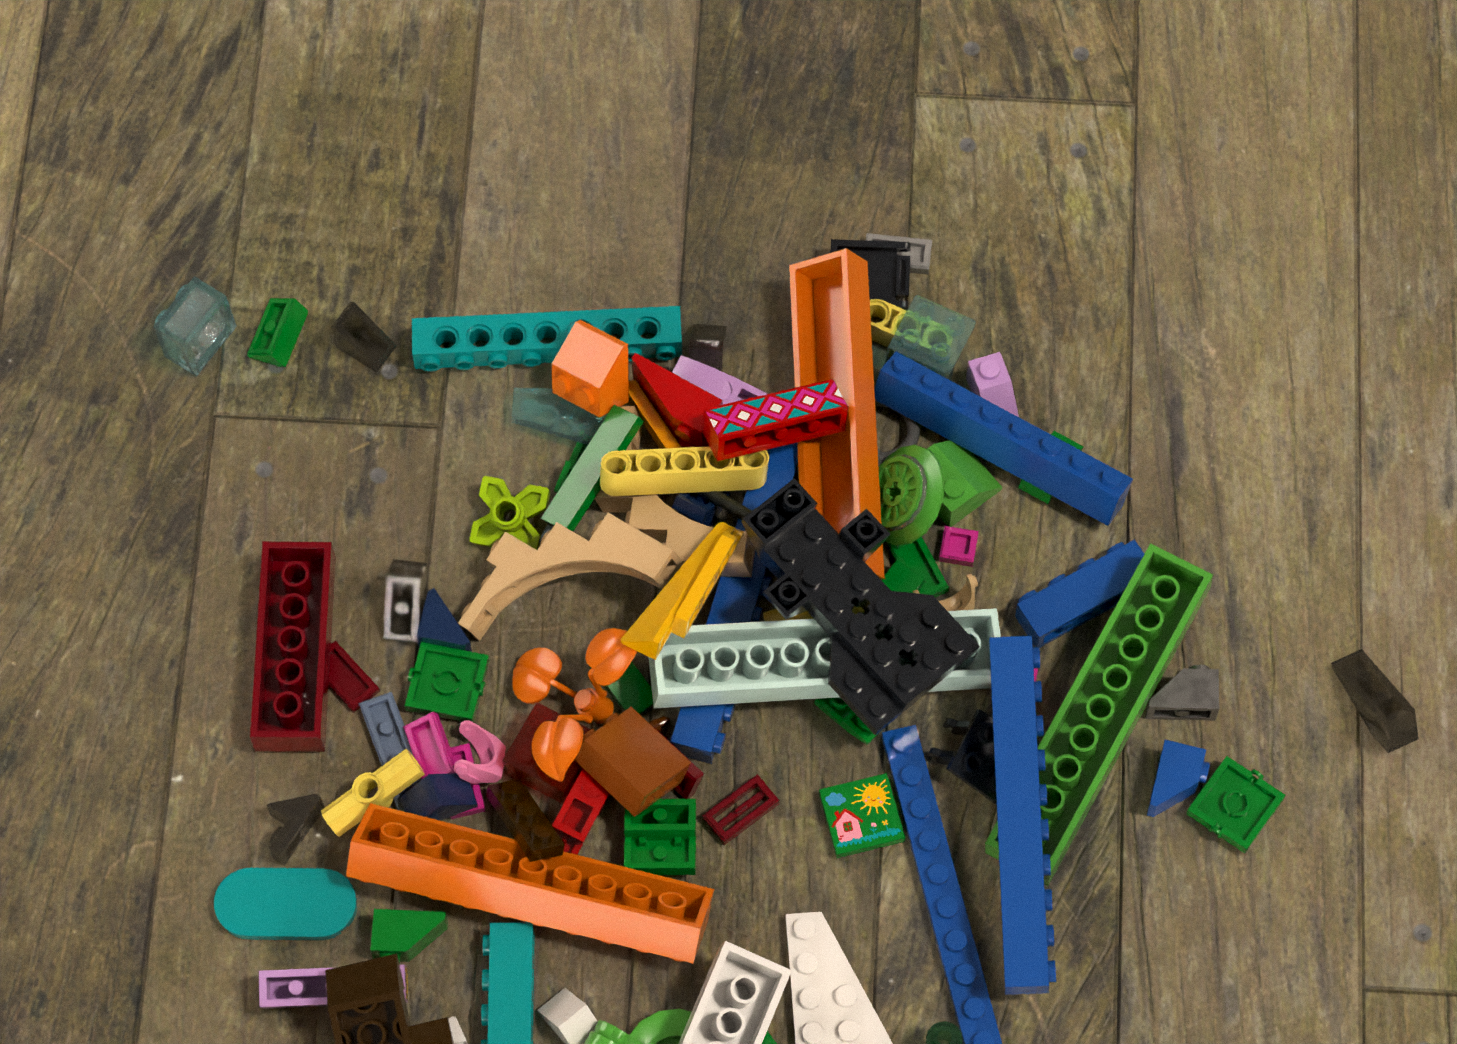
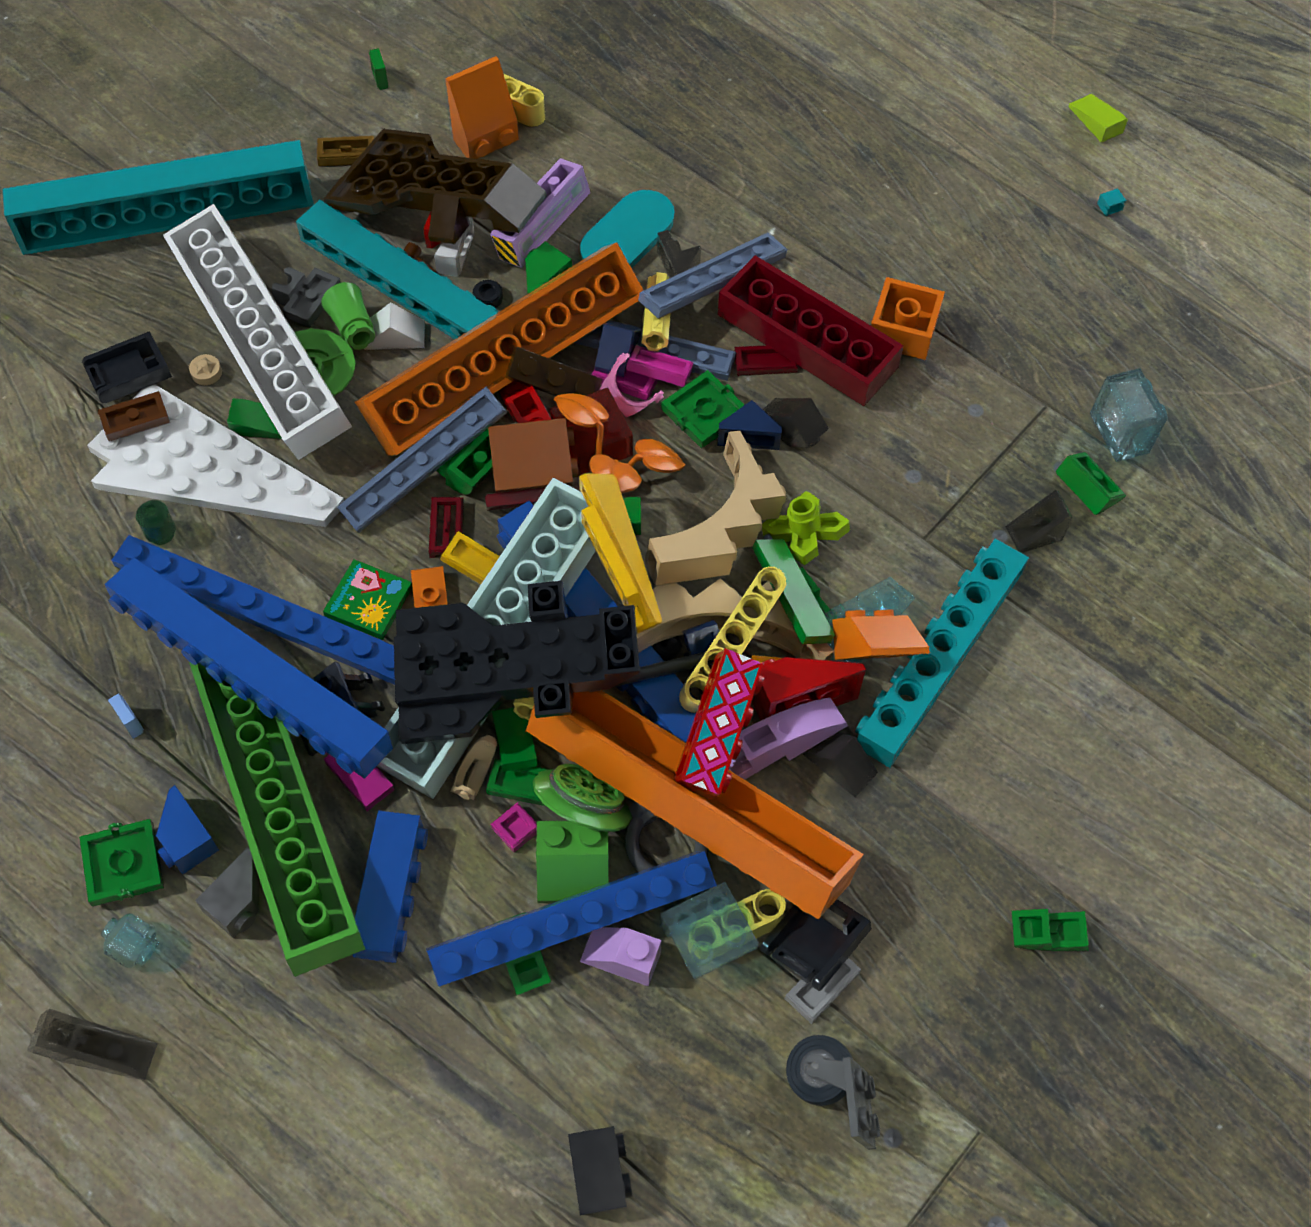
camera: 125 degrees right, 5 degrees down
(215, 573) = (908, 315): none -> orange brick
(292, 769) = (708, 276): none -> sand blue tile
(461, 976) = (488, 292): none -> black tile
(702, 860) = (422, 459): none -> sand blue tile
(727, 131) = (1050, 931): none -> green slope
(757, 751) = (469, 557): none -> yellow tile
(819, 765) = (429, 587): none -> orange plate
(965, 203) = (824, 1072): none -> plate
(1125, 908) = (126, 715): none -> light blue tile
(1156, 298) = (598, 1170): none -> black brick
(1284, 739) = (129, 940): none -> clear light blue head

